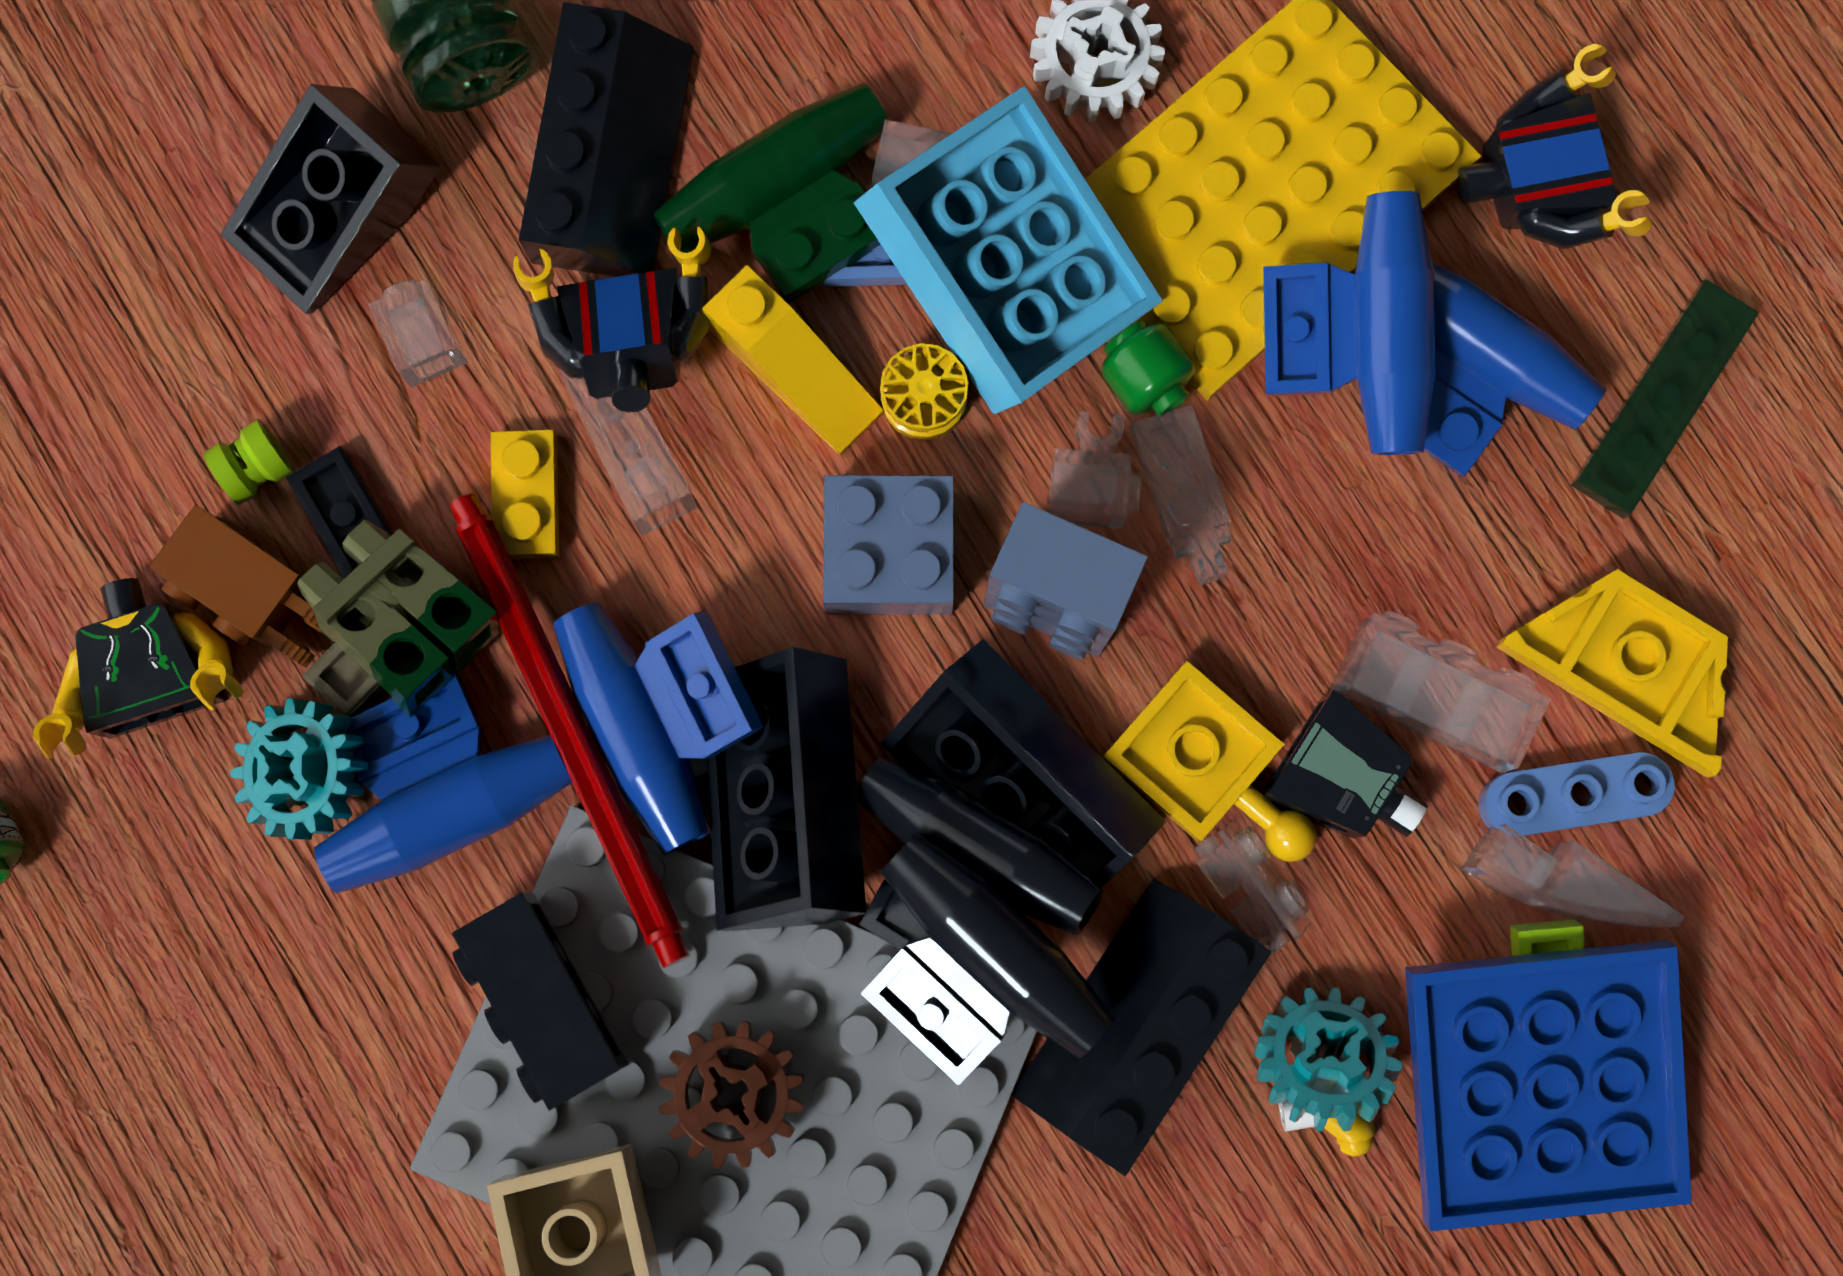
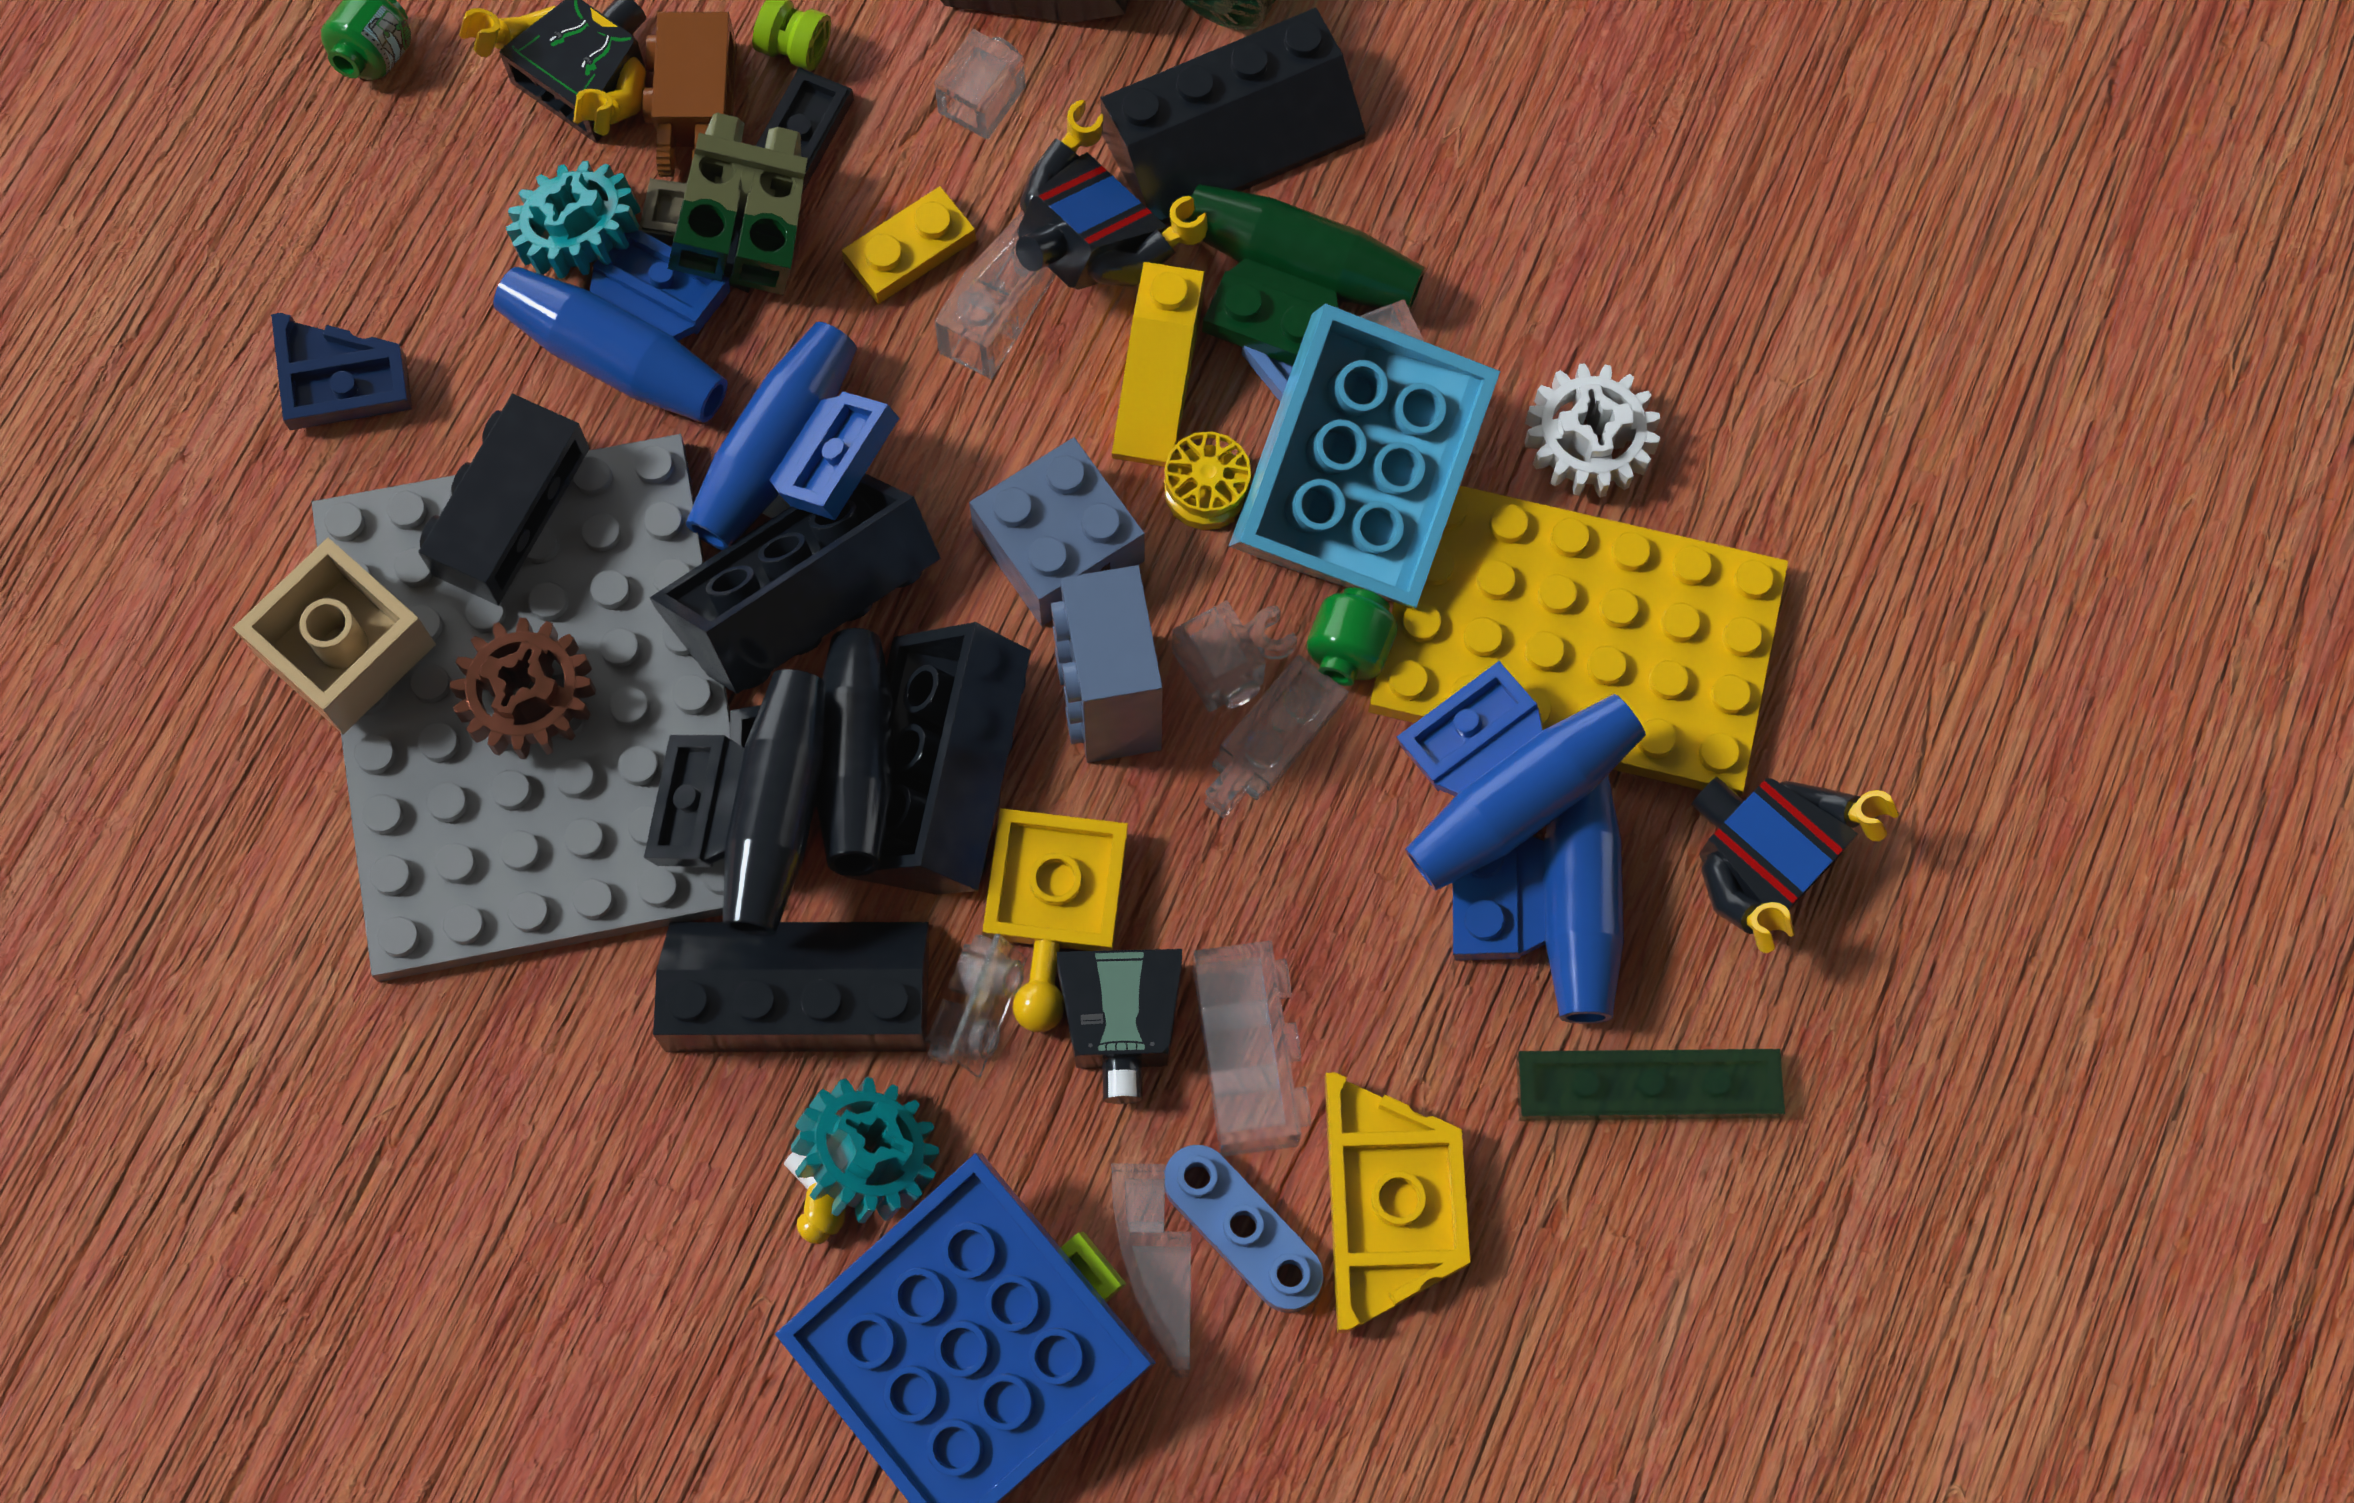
camera: 55 degrees right, 10 degrees down
(298, 1073) = (336, 375): none -> dark blue wing
(569, 731) = (734, 390): red piece -> none

